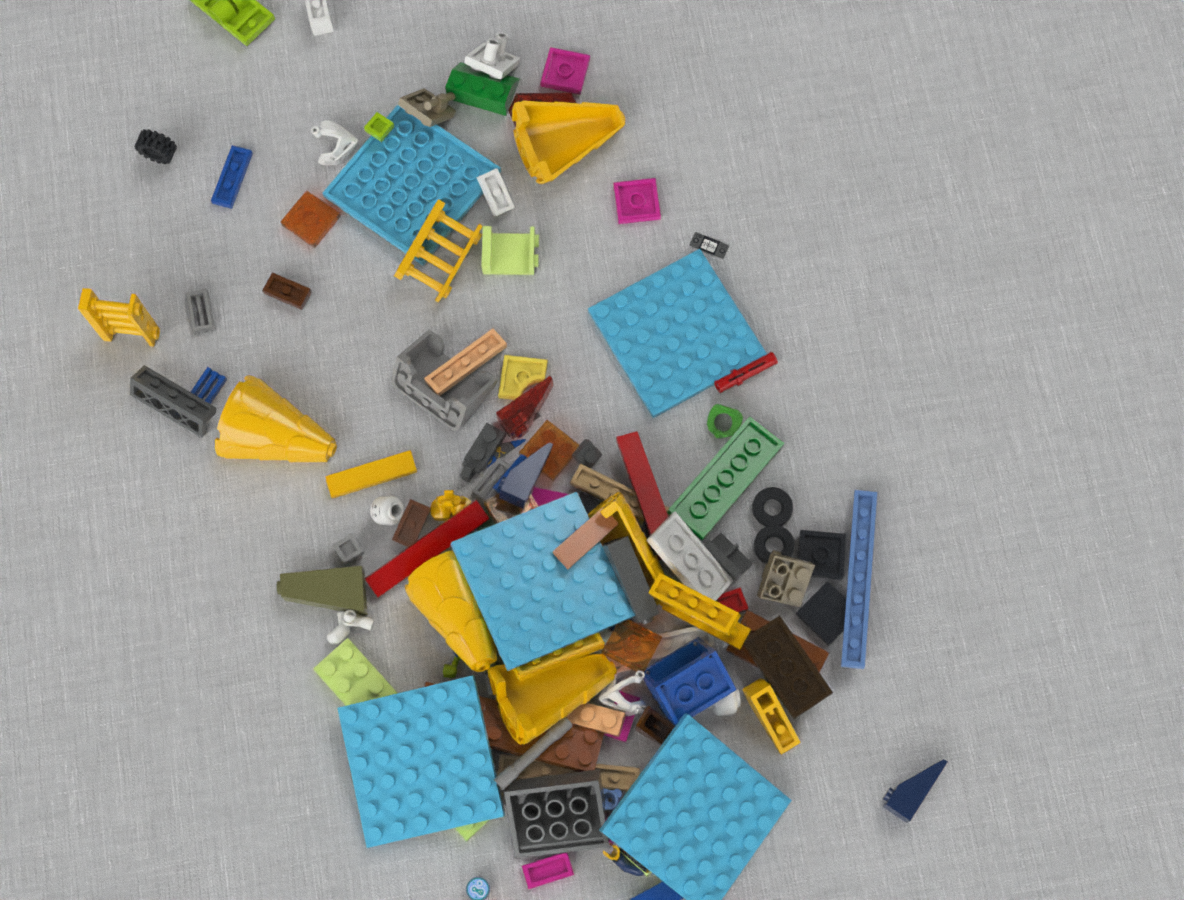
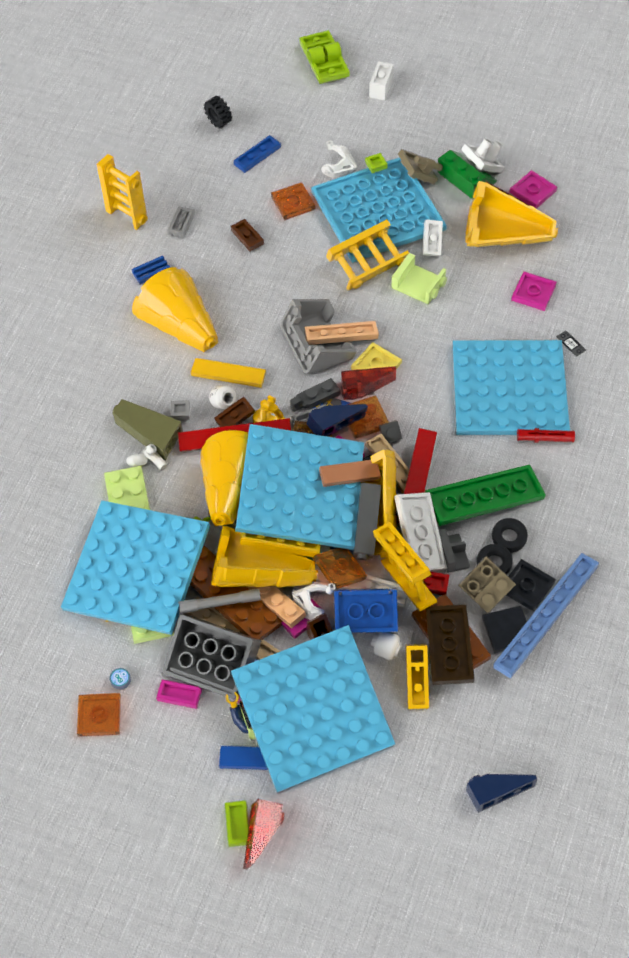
camera: 30 degrees right, 15 degrees down
(173, 399) = (125, 263): dark grey fence -> none
(736, 416) = (508, 449): bright green piece -> none

